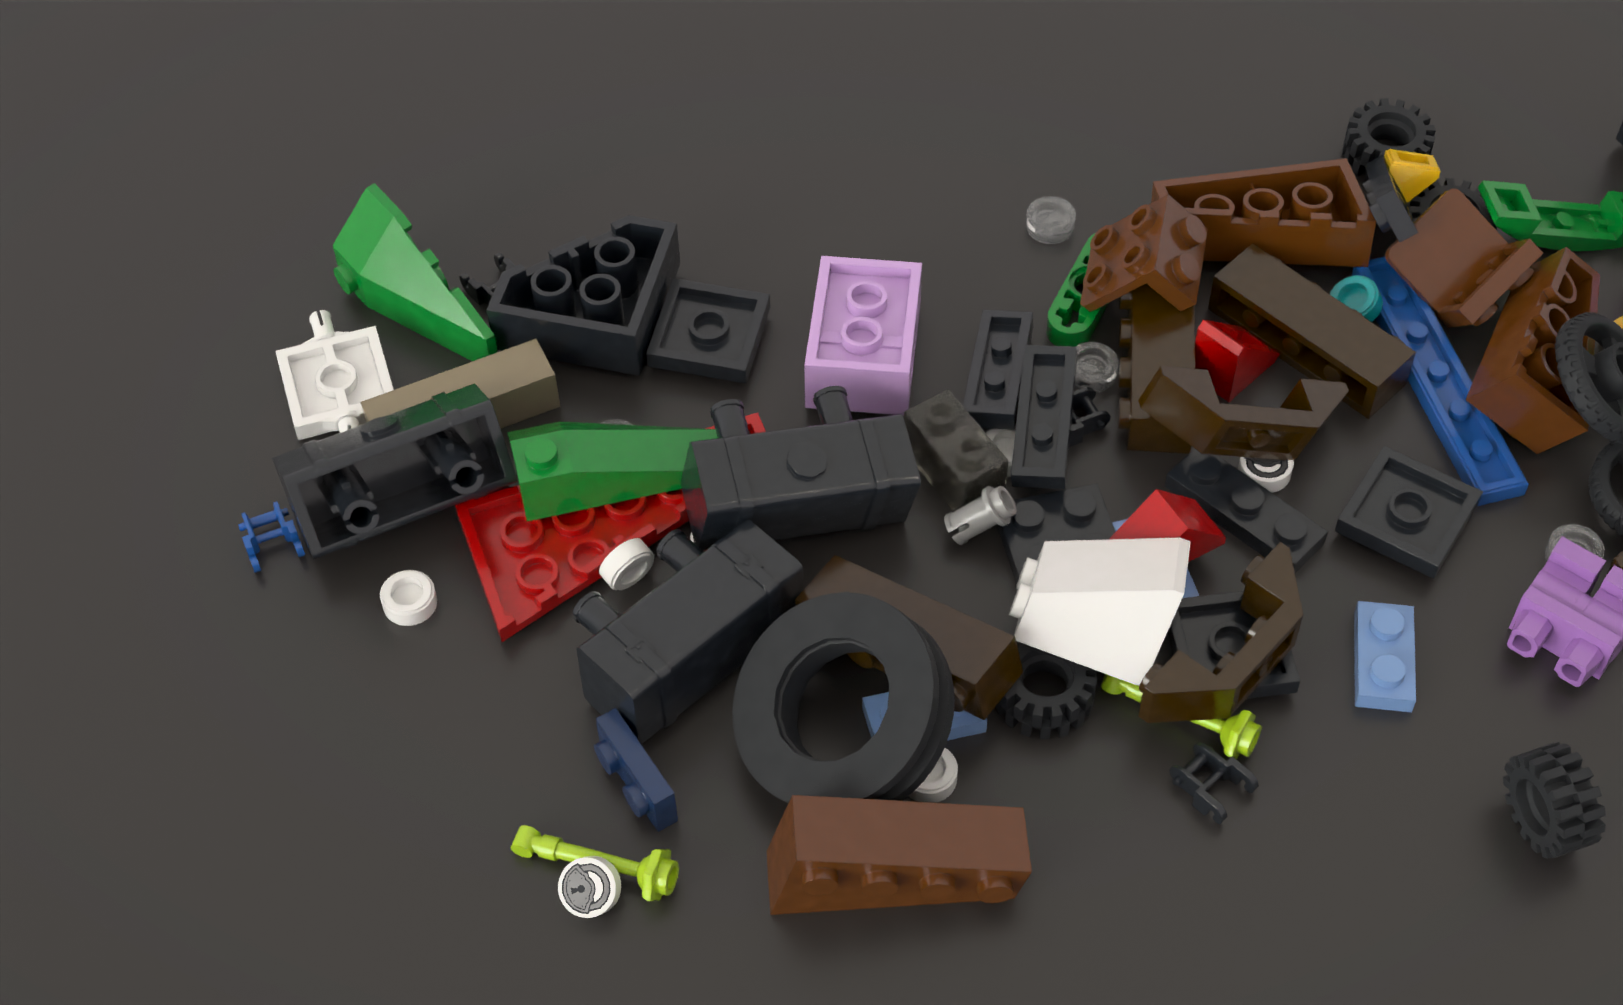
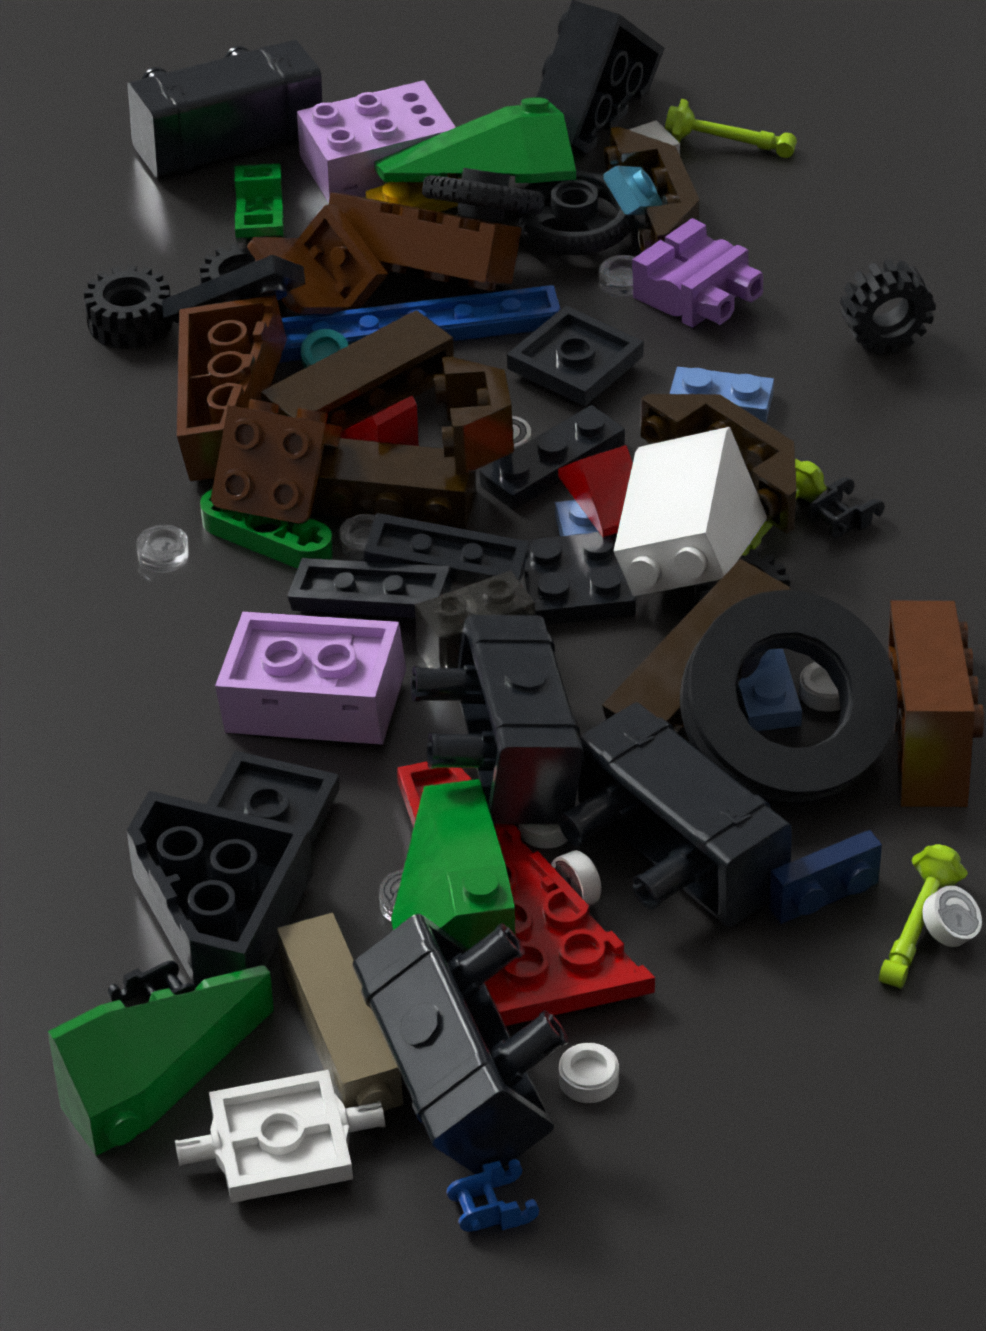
camera: 85 degrees left, 10 degrees down
(991, 508) = (551, 604): light grey pin -> none
(1411, 171) = (191, 275): yellow slope -> none

